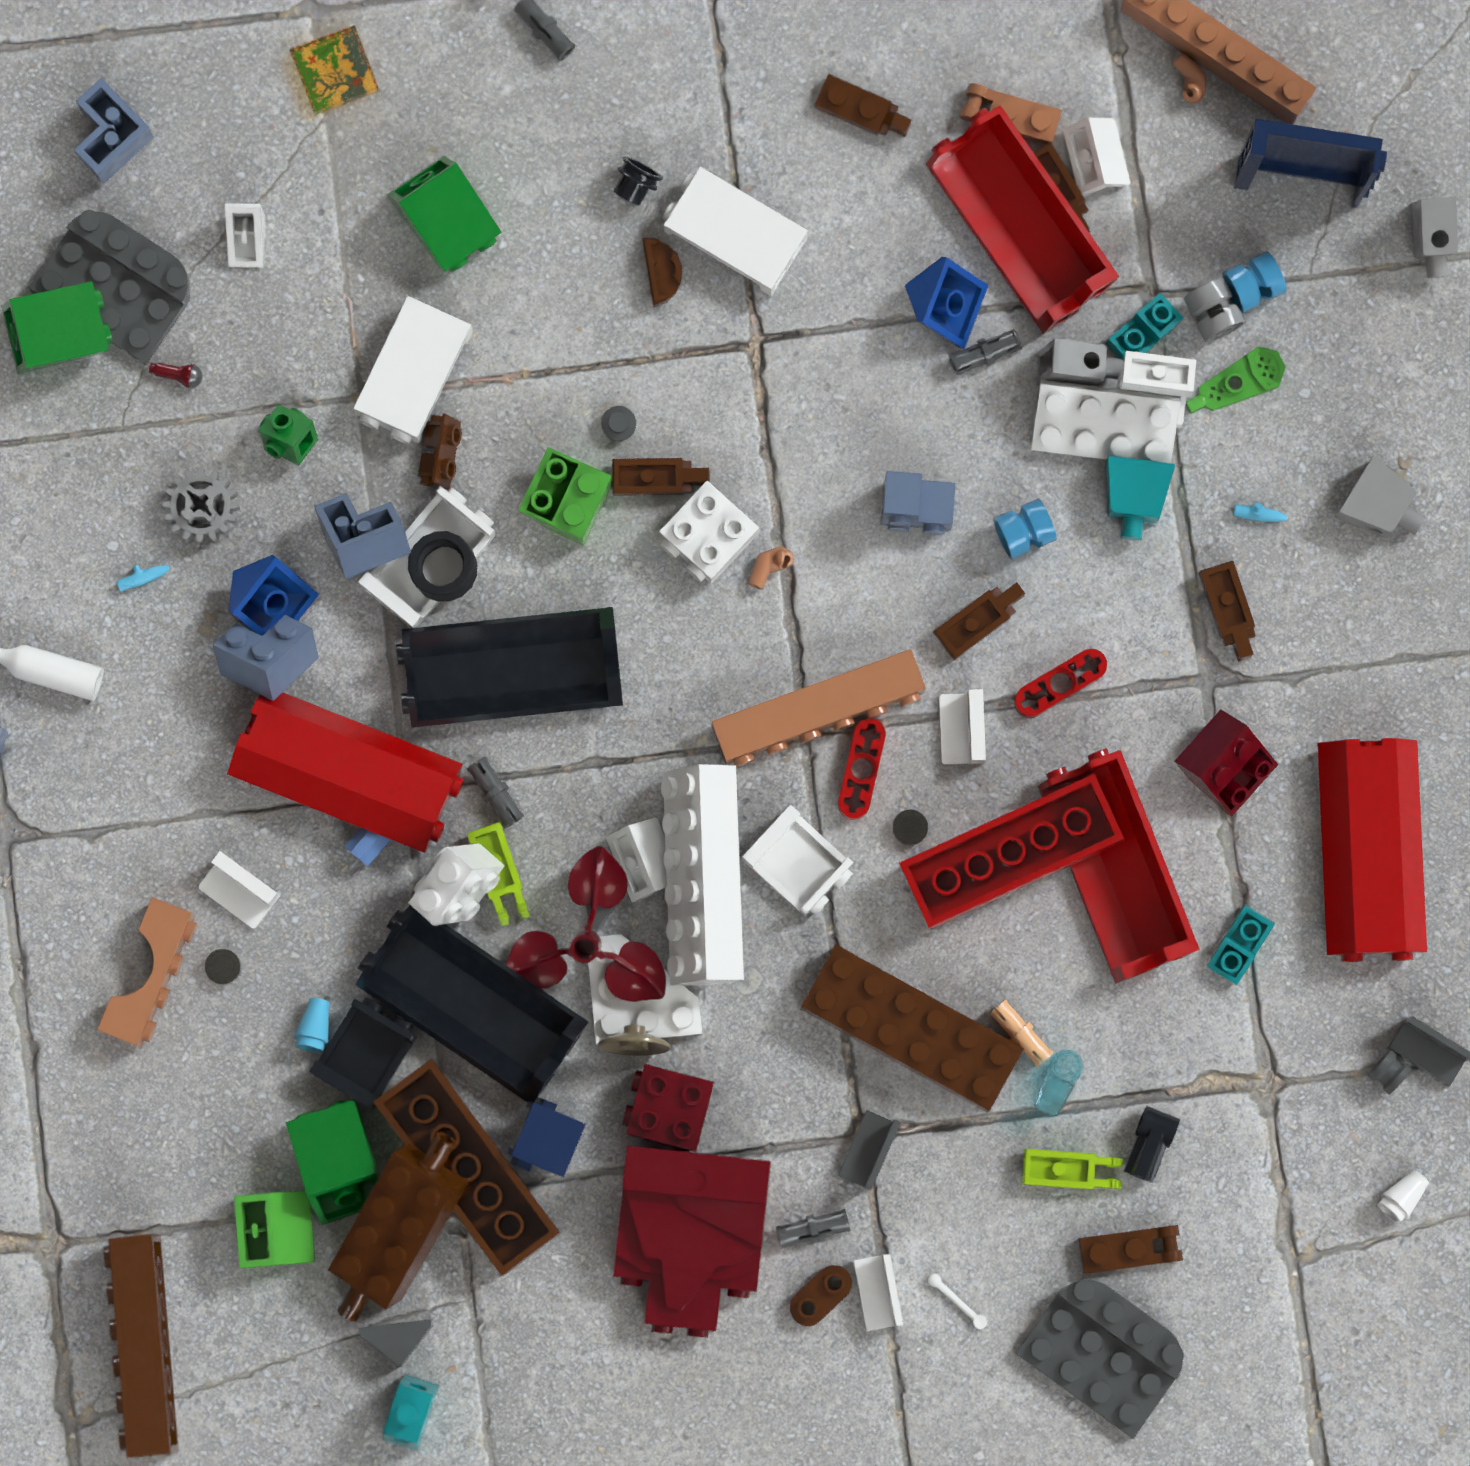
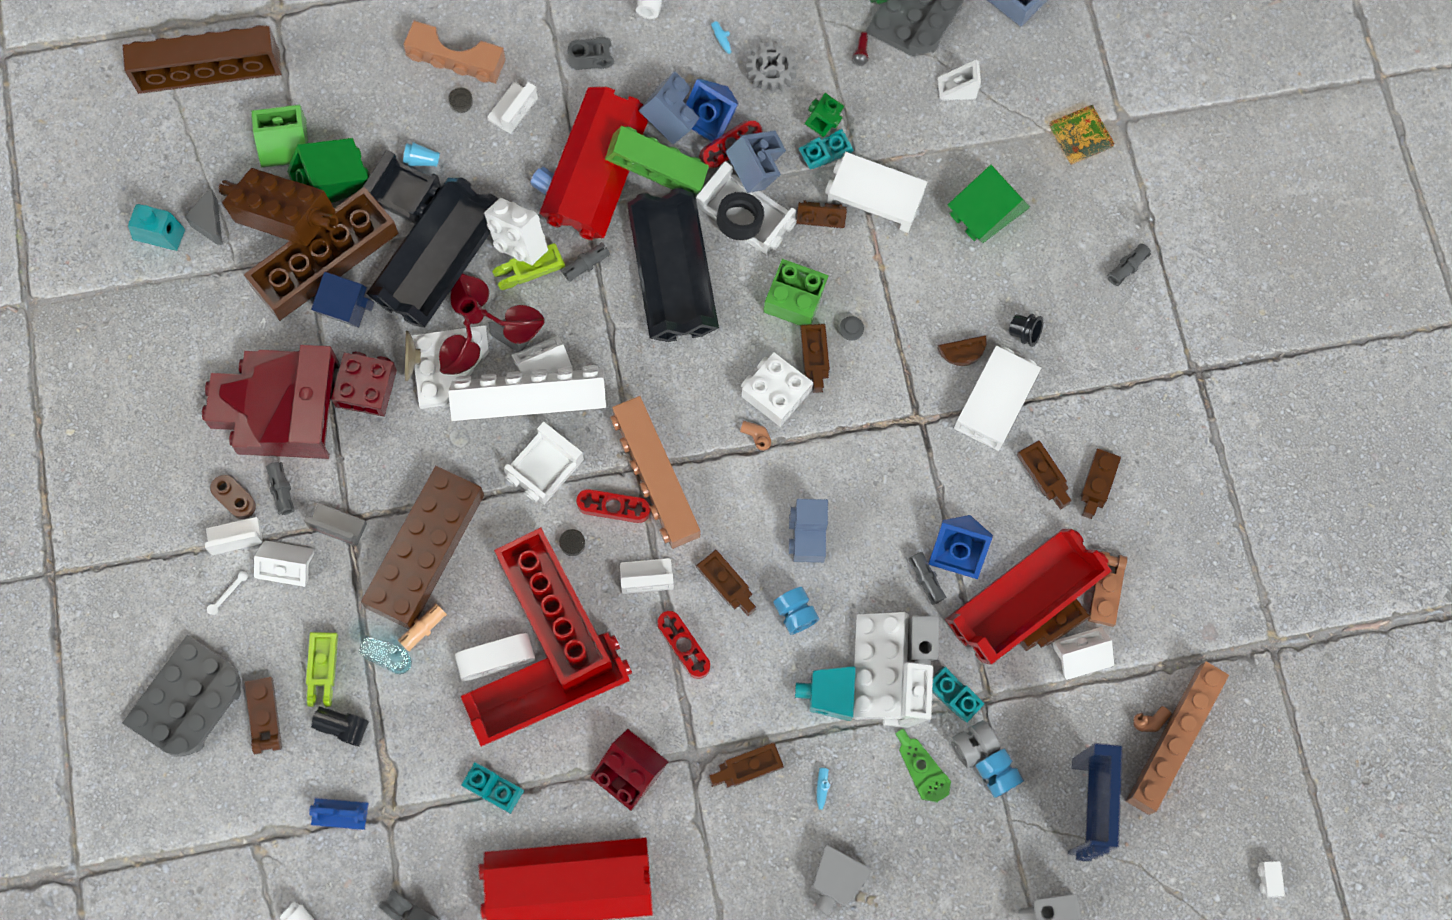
camera: 85 degrees right, 10 degrees down
(160, 764) = (591, 53): none -> dark grey piece
(320, 588) = (712, 147): none -> red beam
(337, 437) = (827, 150): none -> teal slope
(356, 678) = (656, 161): none -> bright green brick
(846, 178) = (1045, 473): none -> reddish brown hinge
(920, 1222) = (283, 563): none -> white panel
(1067, 935) = (495, 656): none -> white beam
(1266, 1146) = (339, 813): none -> blue hinge

